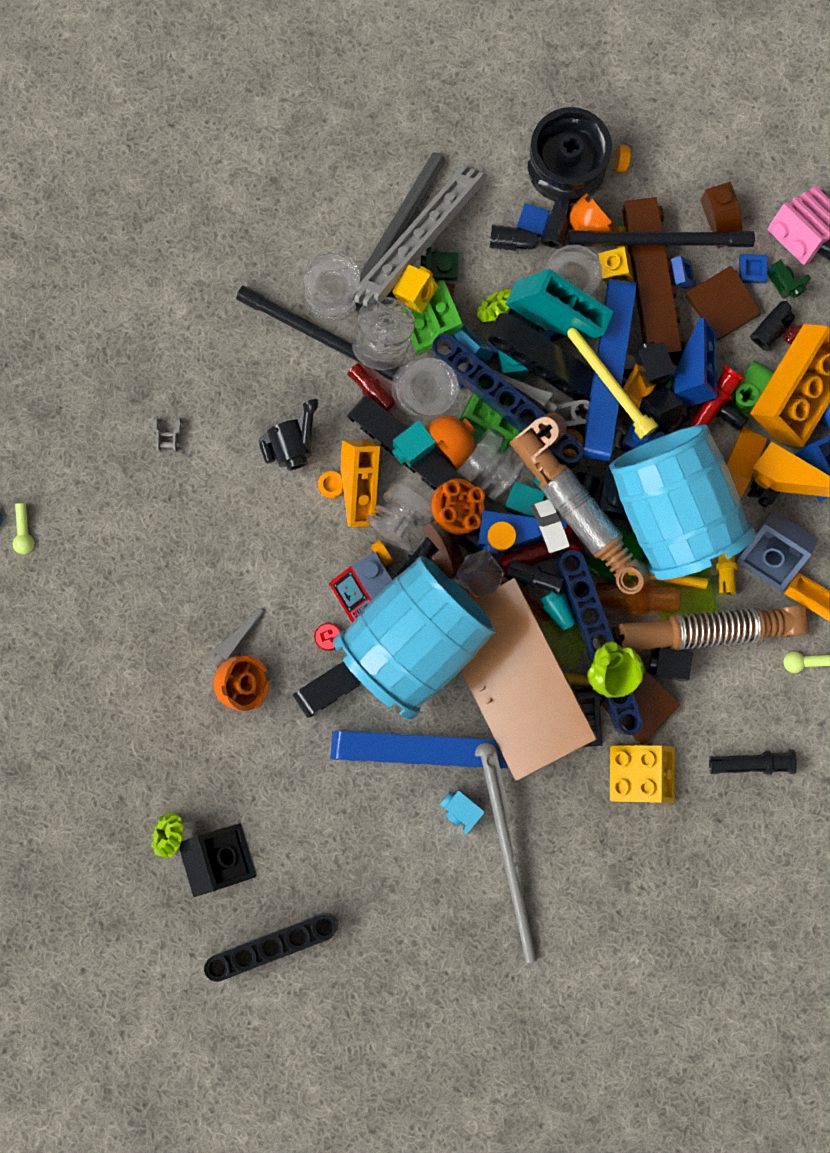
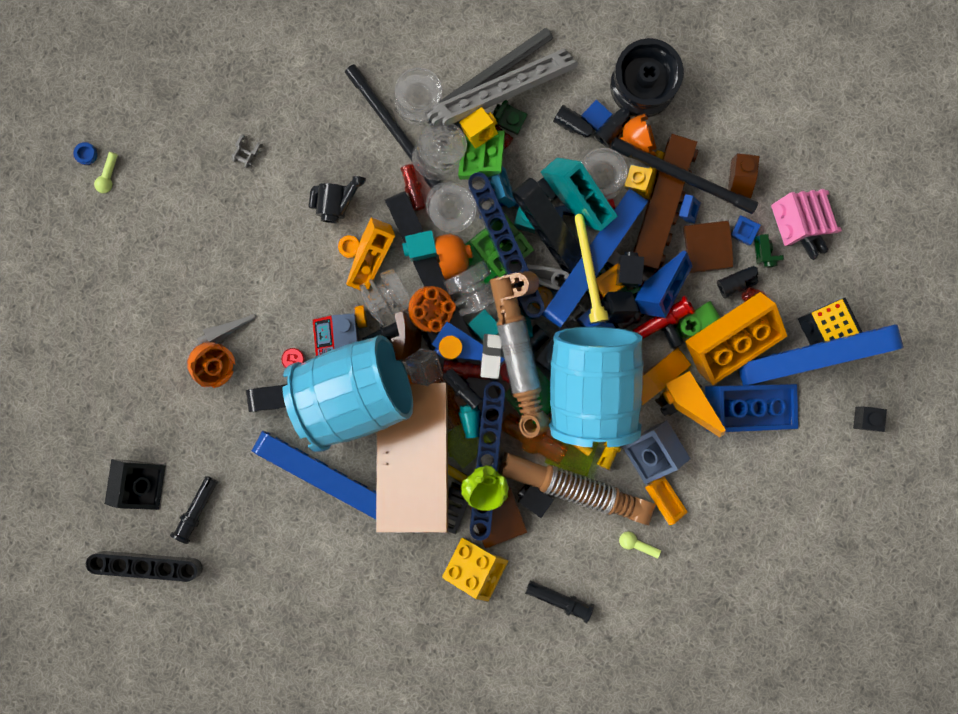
camera: 25 degrees right, 5 degrees up
(169, 827) = (107, 449): lime gear -> none
(297, 871) = (190, 519): none -> black pin
(461, 810) = (329, 533): medium azure brick -> none
(494, 305) = (533, 168): lime gear -> none
(500, 807) = (356, 545): light grey bar -> none
(536, 396) = (529, 252): light grey piece -> none
(622, 158) = (687, 99): light orange tile -> none

